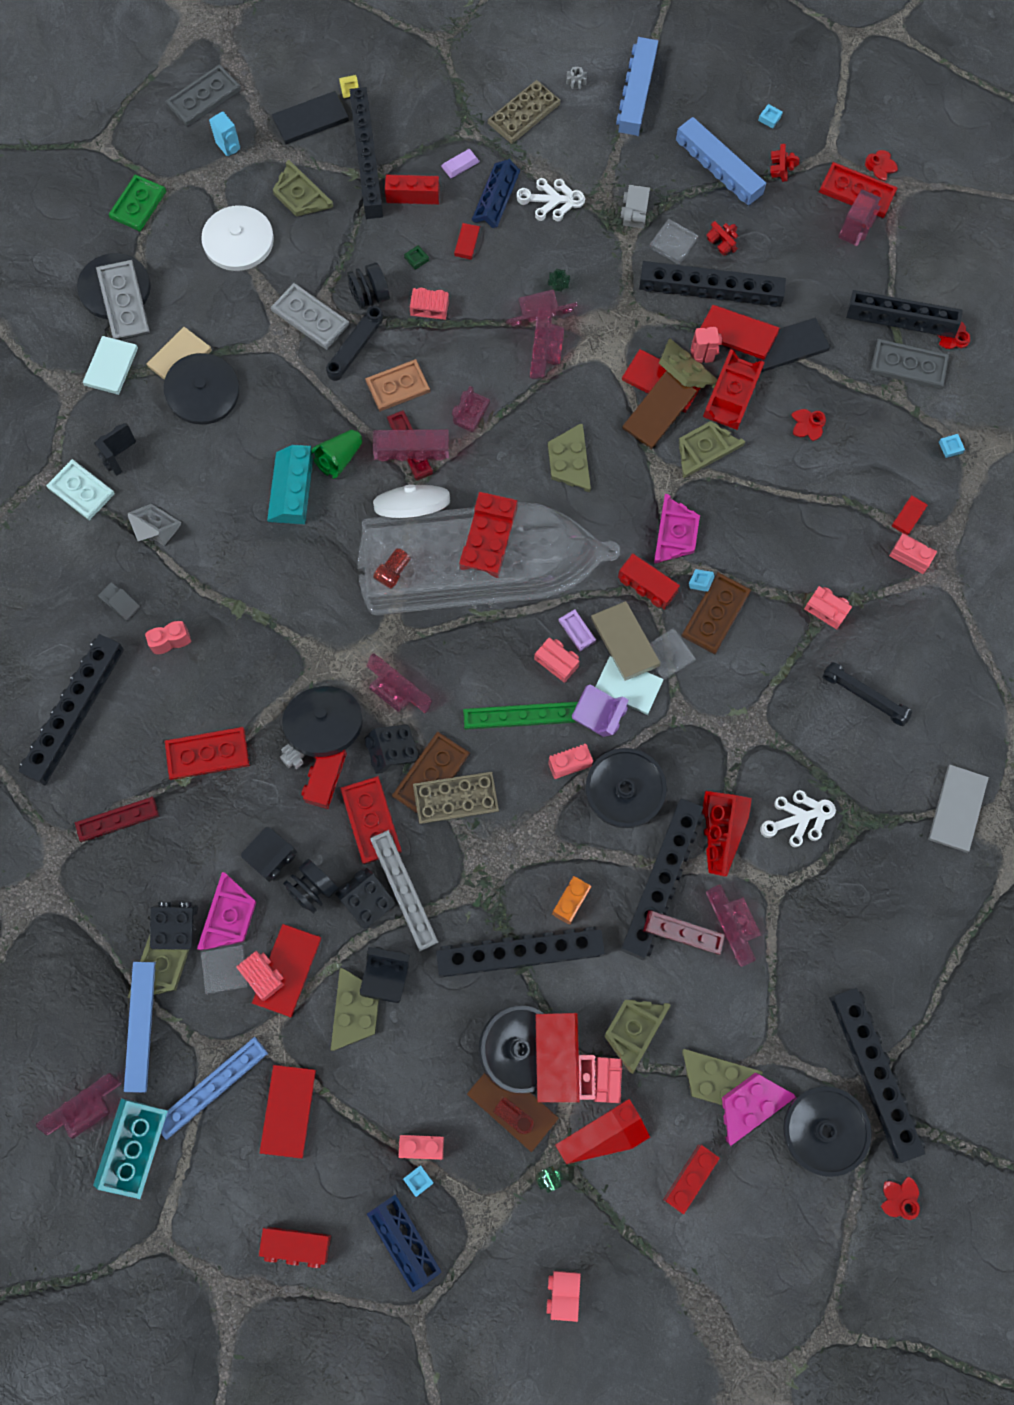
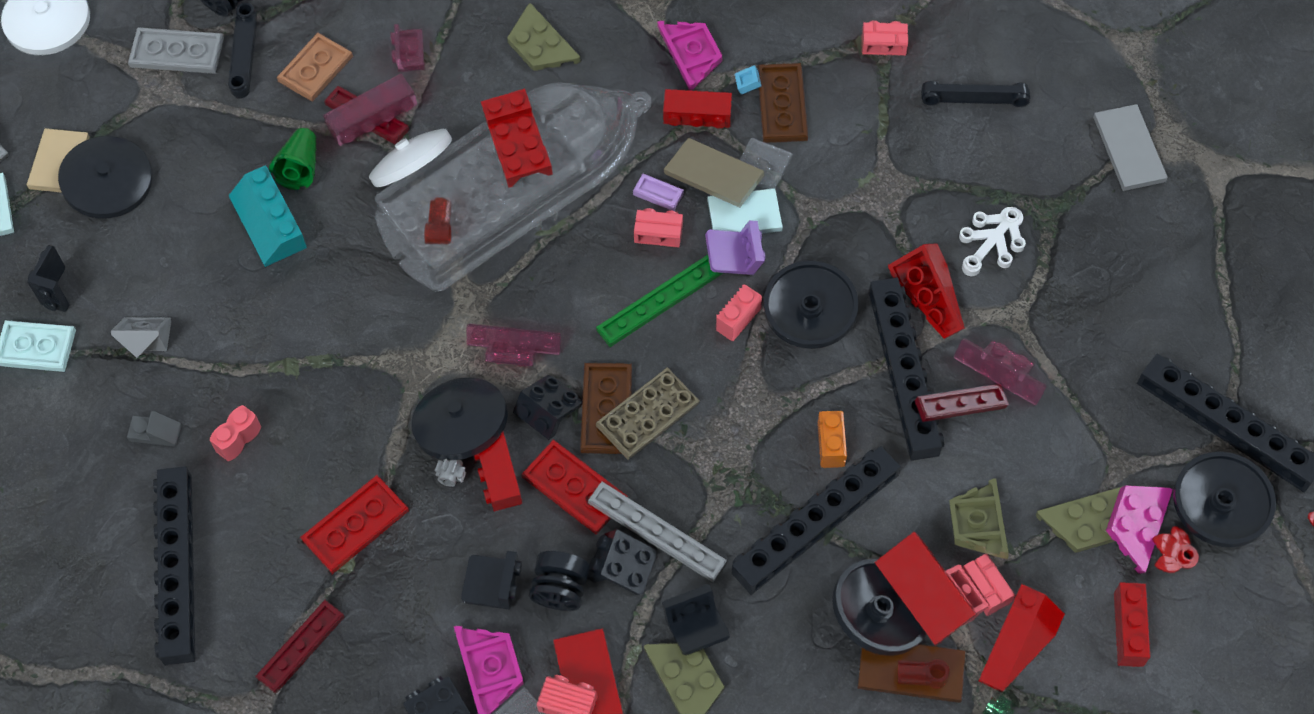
camera: 30 degrees left, 10 degrees down
(761, 1143) = (1173, 549): none -> red plate

